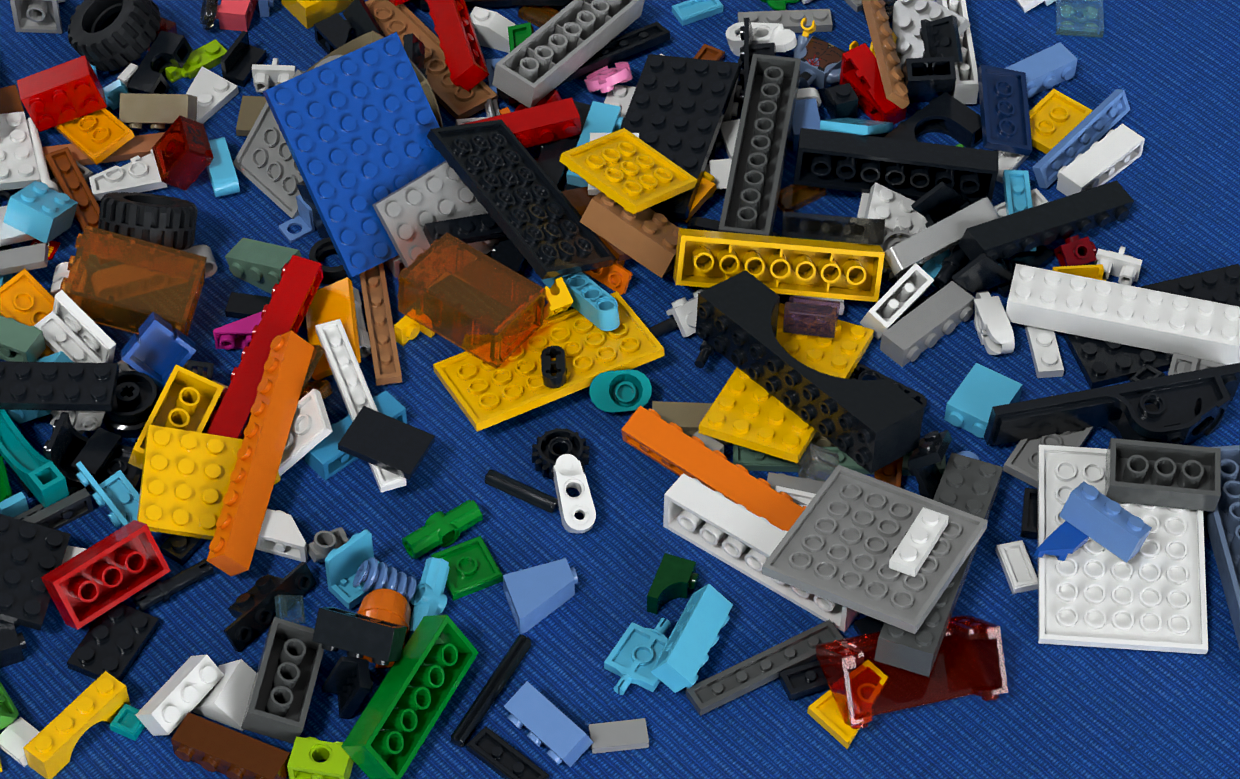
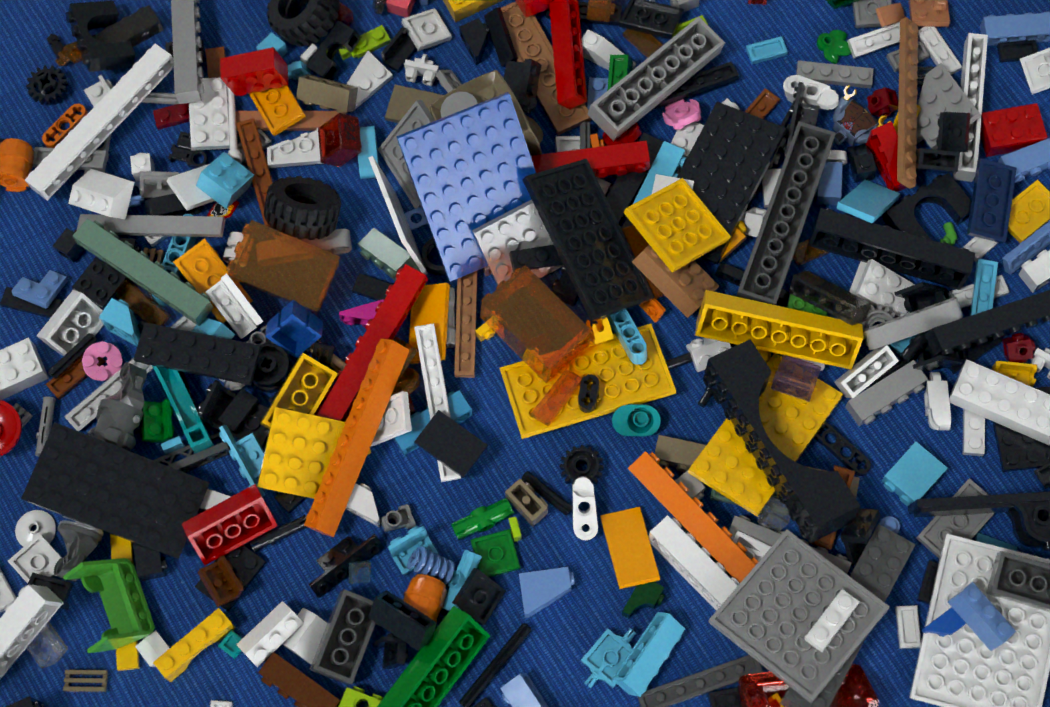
camera: 15 degrees right, 20 degrees up
(105, 641) = (221, 581): none -> reddish brown bracket
(270, 198) = (398, 215): none -> white piece
(273, 36) = (426, 29): none -> white plate
(458, 602) = (478, 596): none -> black plate
(487, 532) = (514, 526): none -> lime tile
(497, 499) = (526, 502): none -> dark tan brick
(513, 377) = (556, 397): none -> clear orange tile
(641, 528) = (629, 548): none -> light orange tile
(849, 31) = (882, 102): none -> dark red brick
(1009, 40) = (1011, 129): none -> red brick

